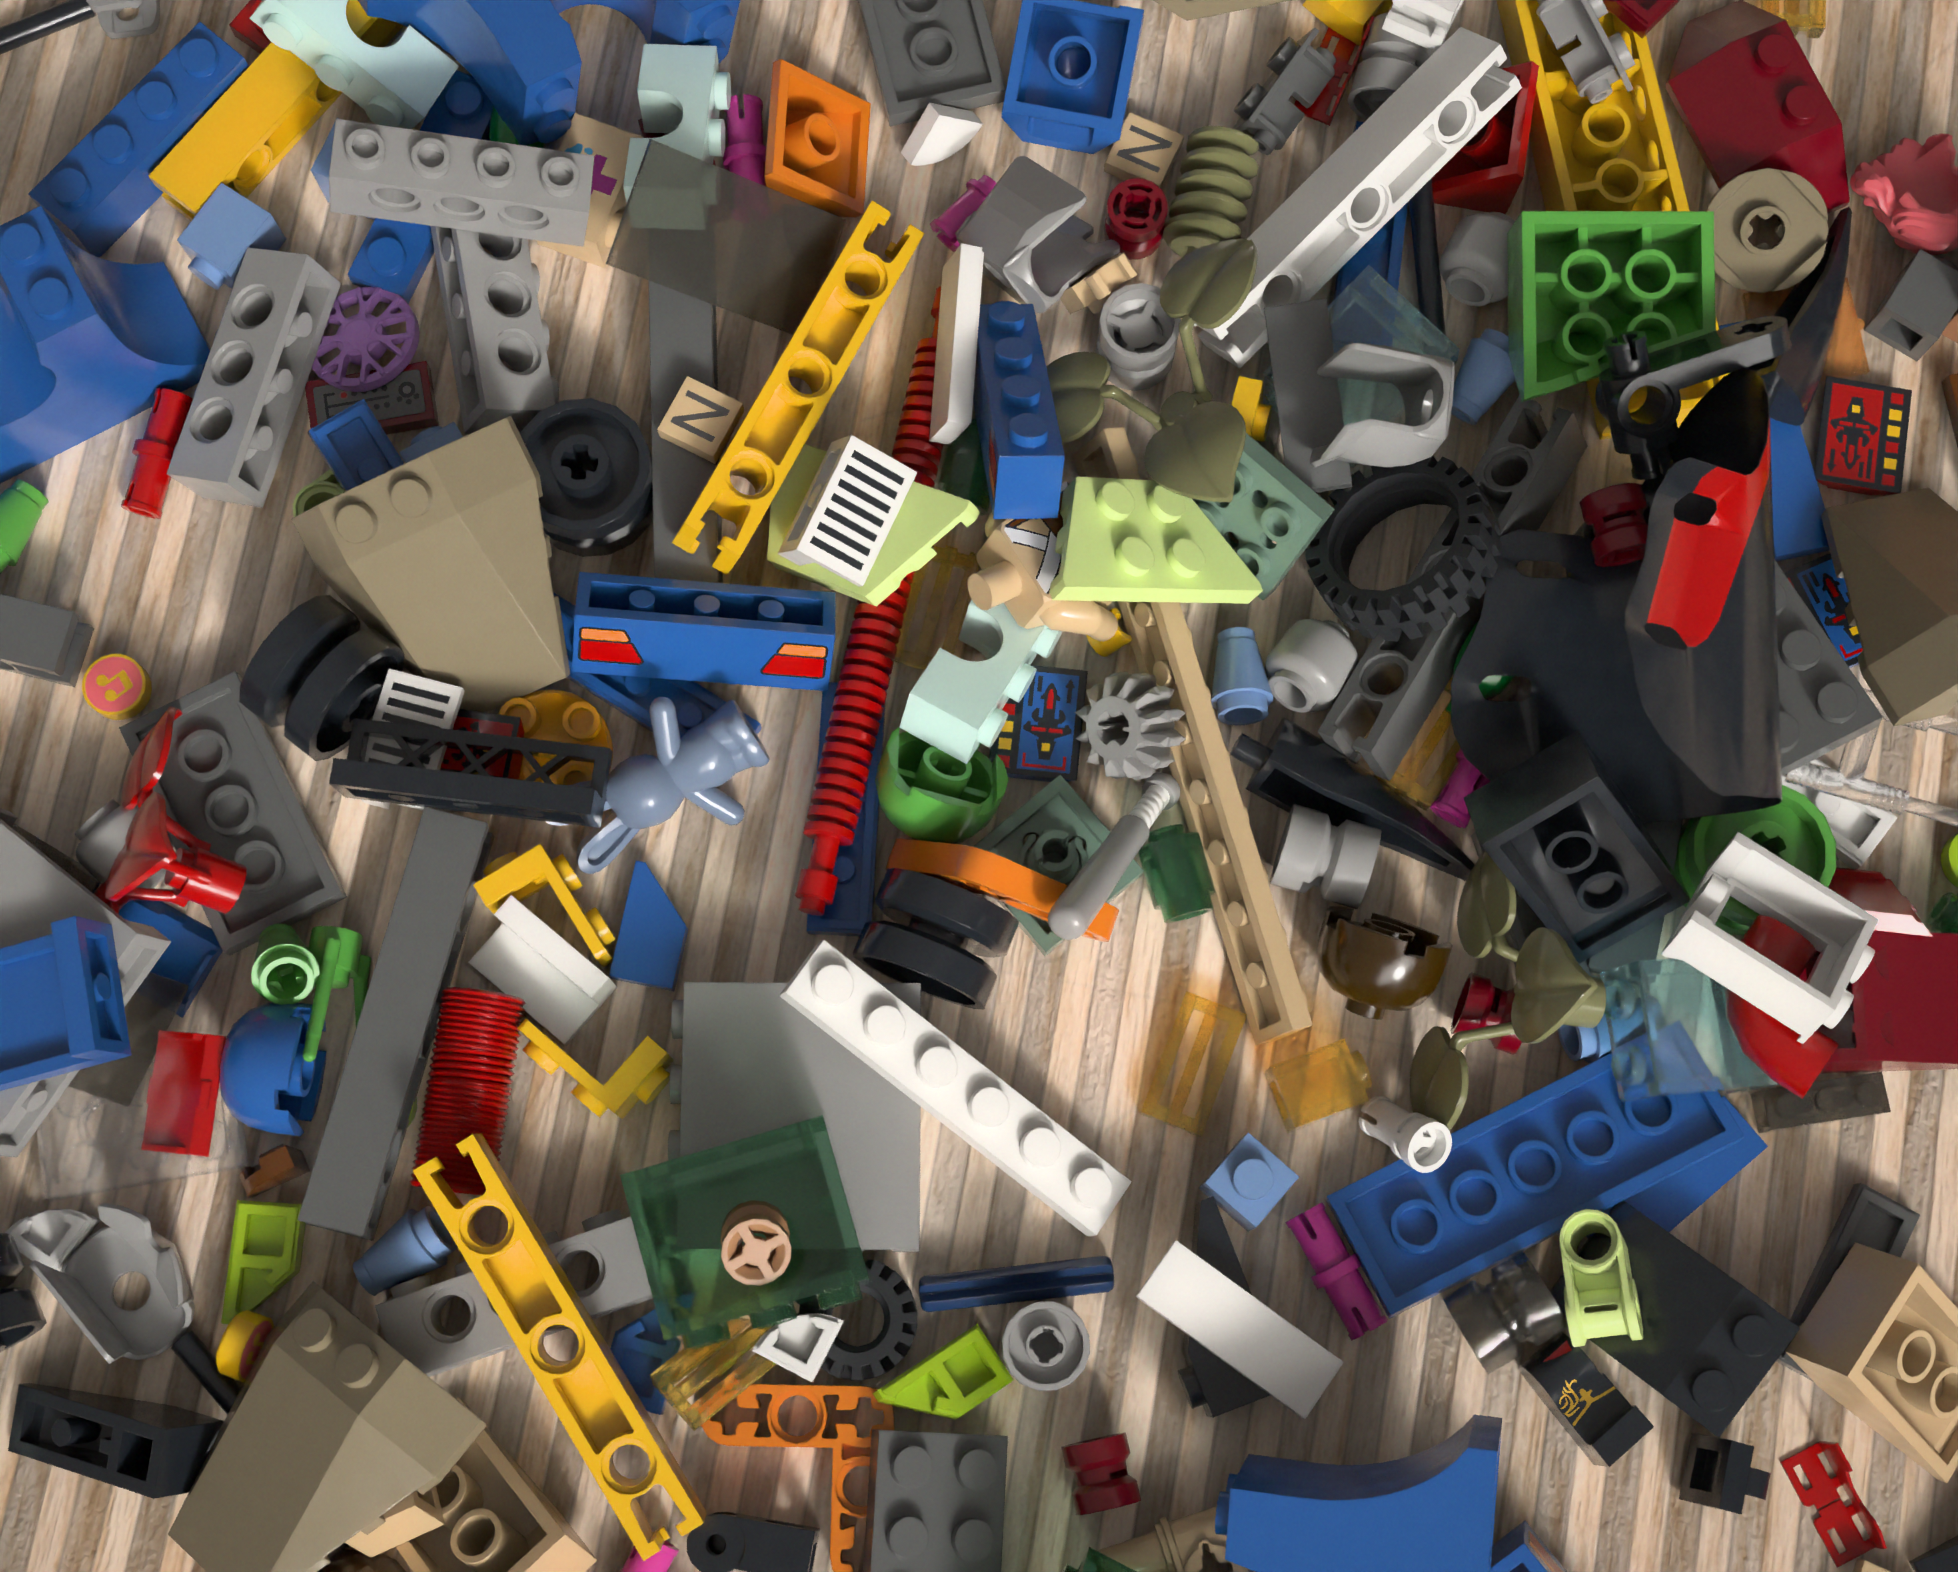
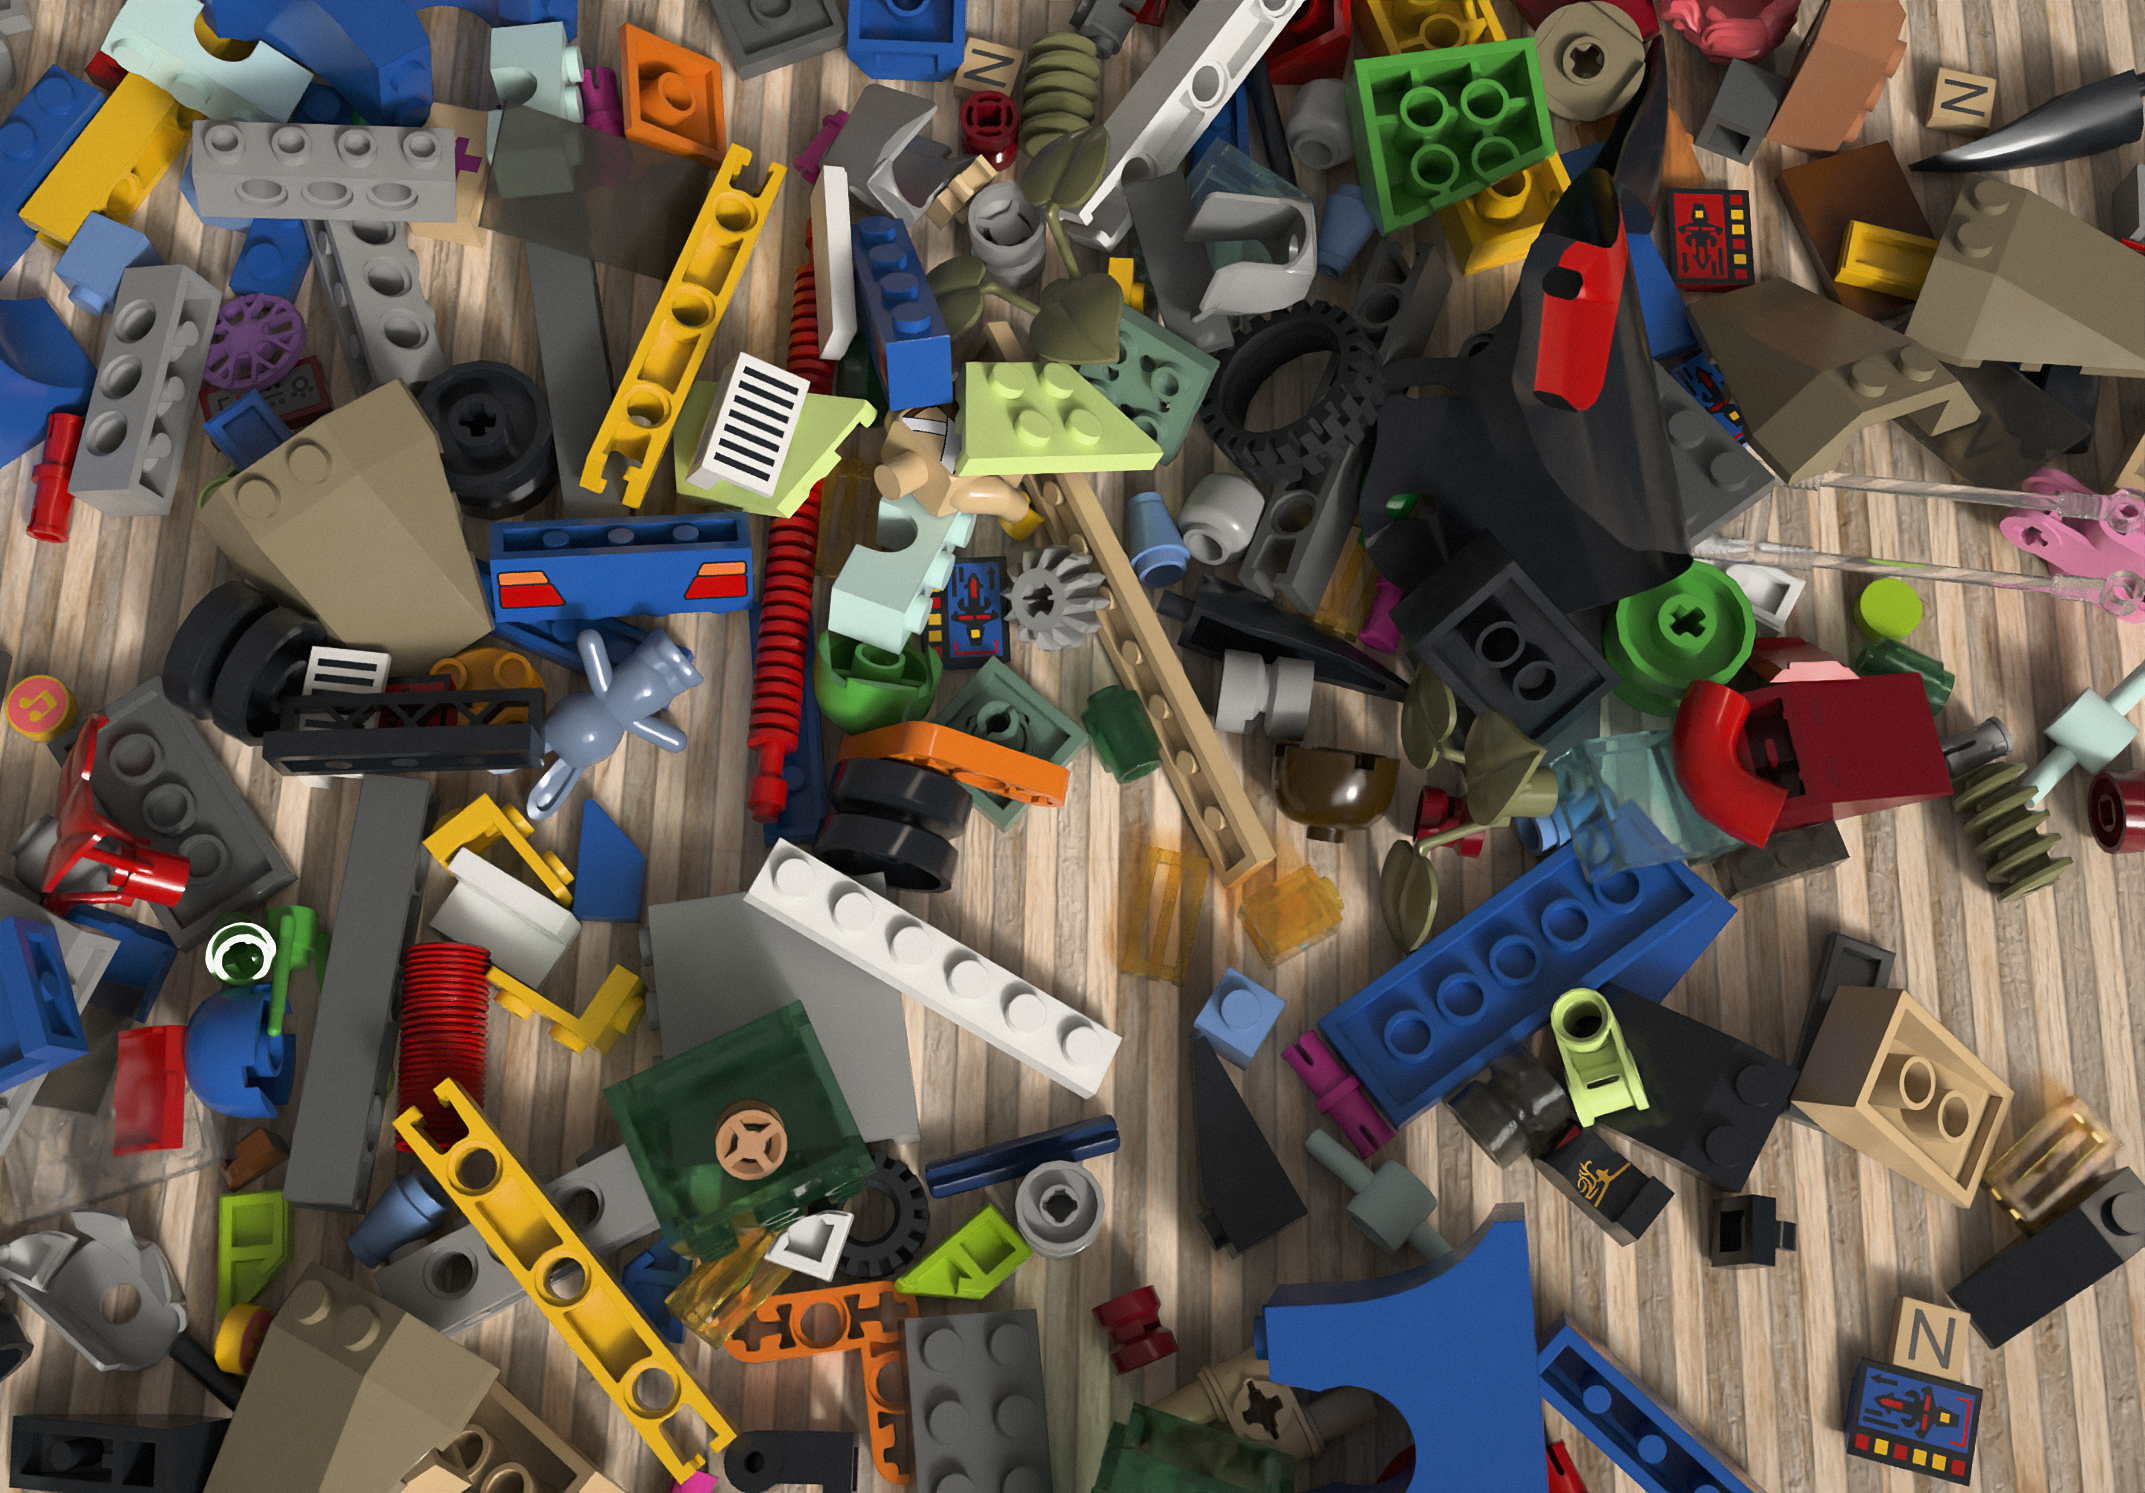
camera: 10 degrees left, 5 degrees down
(701, 419) = (592, 366): tan tile -> none
(940, 134) = (791, 80): white tile -> none
(1101, 873) = (1044, 737): light grey piece -> none
(1239, 1329) = (1250, 1160): white tile -> none
(1368, 1387) = (1387, 1203): none -> light aqua piece
(1412, 1136) = (1391, 948): white pin -> none
(1617, 523) = (1492, 334): dark red wheel -> none
(1666, 371) = (1509, 243): black piece -> none
(1799, 901) = (1707, 652): white window -> none
(1835, 1514) = (1851, 1237): red piece -> none

